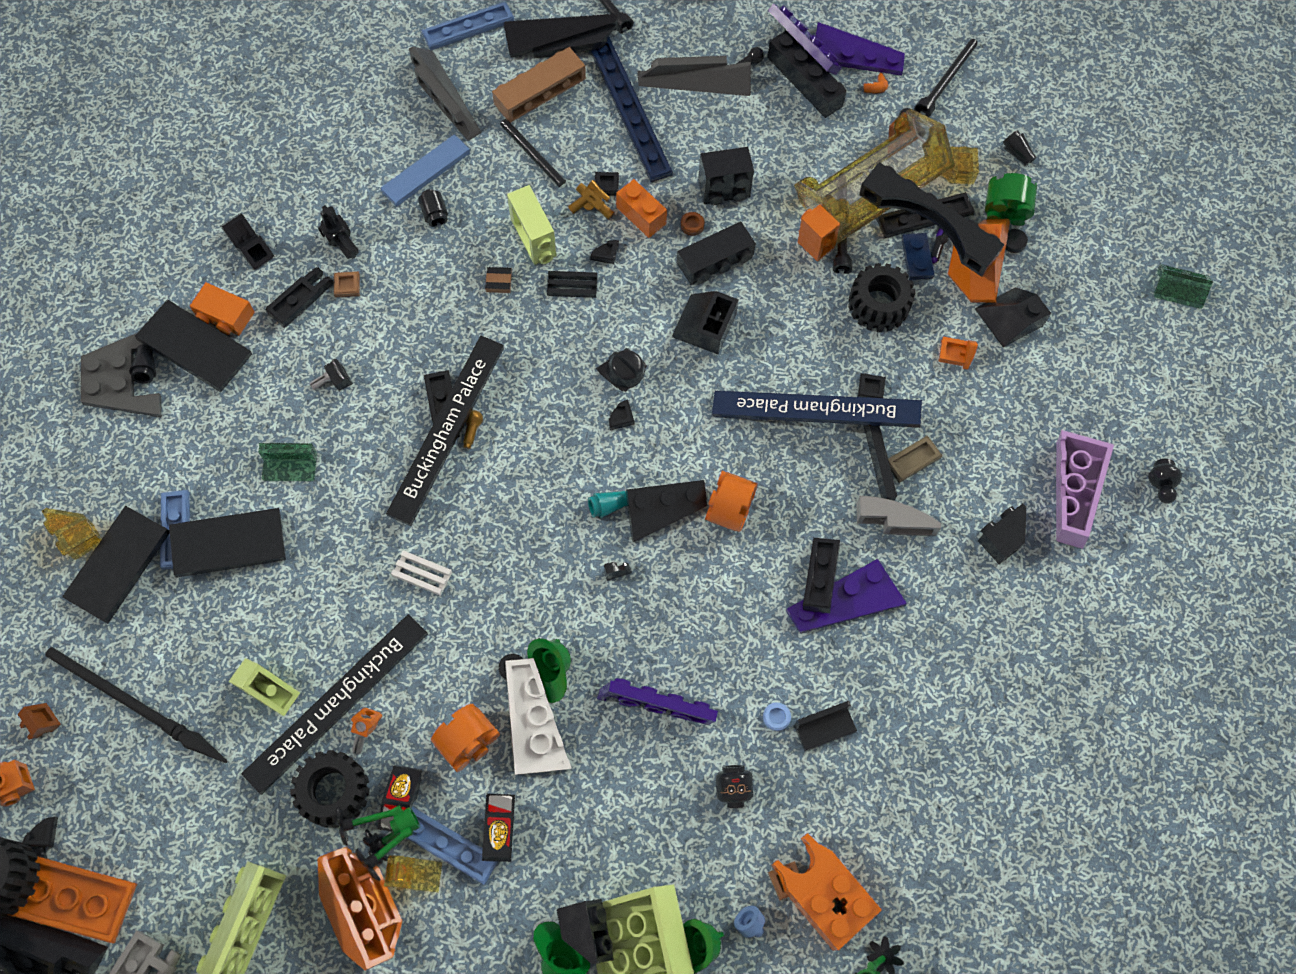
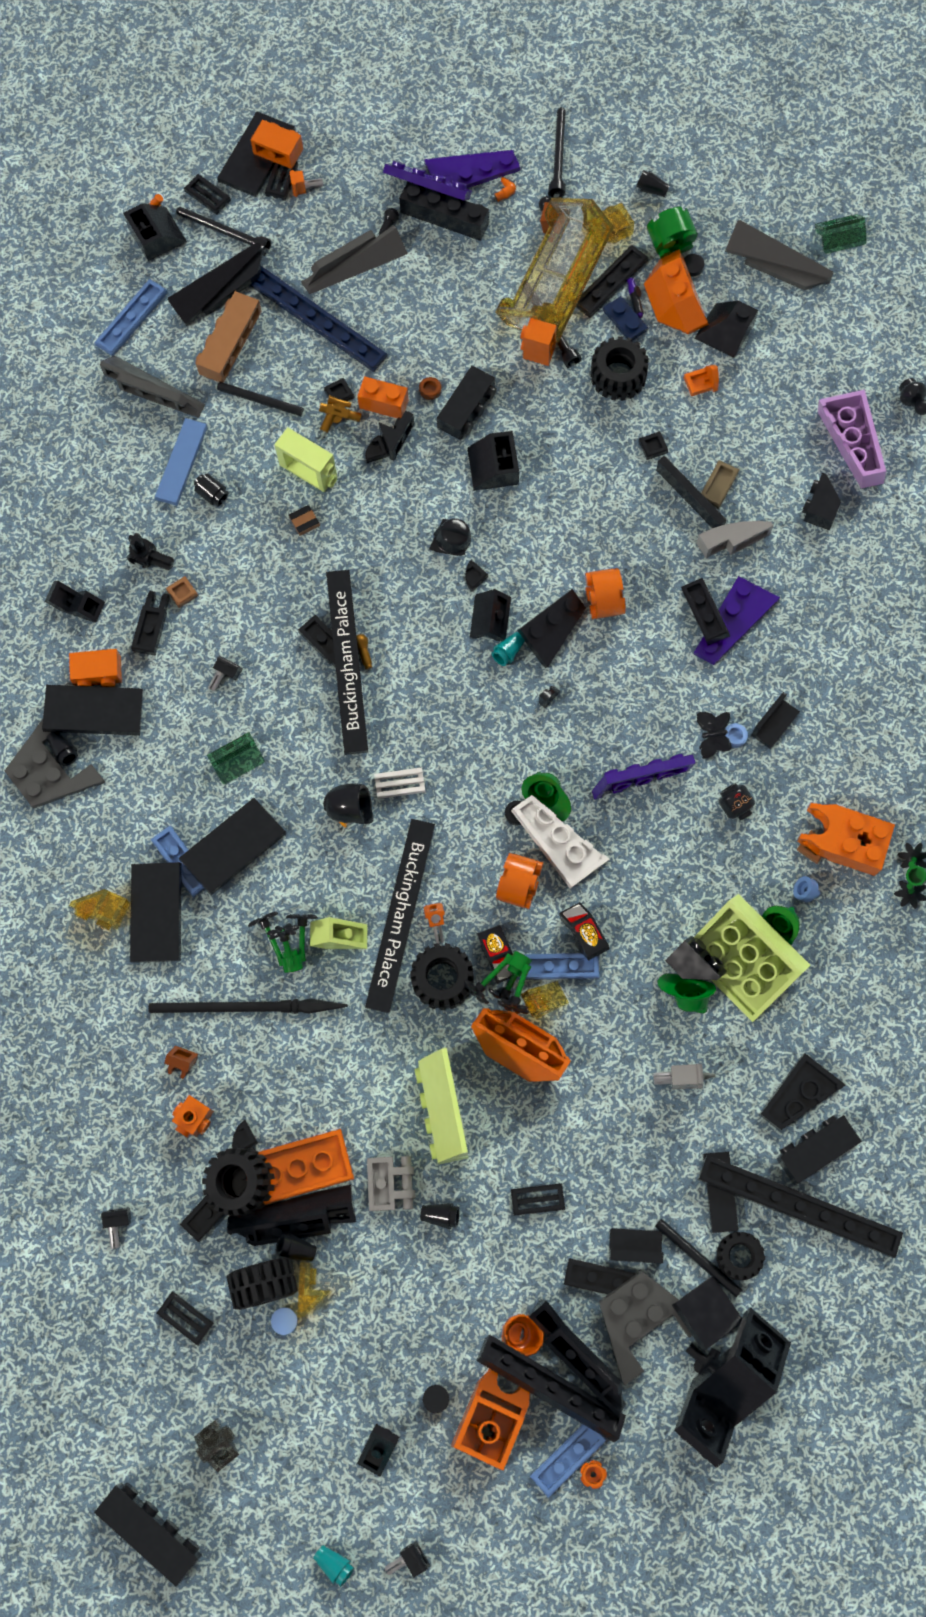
camera: 25 degrees left, 5 degrees up
(204, 683) = (290, 959): none -> plant
(358, 558) = (346, 801): none -> black piece
(574, 281) = (356, 505): black tile -> none
(612, 462) = (490, 615): none -> black panel
(629, 251) = (395, 437): none -> black slope
(725, 175) = (436, 333): black brick -> none
(754, 709) = (715, 733): none -> black piece
(817, 408) = (624, 485): dark blue tile -> none
(890, 190) = (671, 287): black arch -> none
(1100, 275) = (776, 258): none -> dark grey wedge

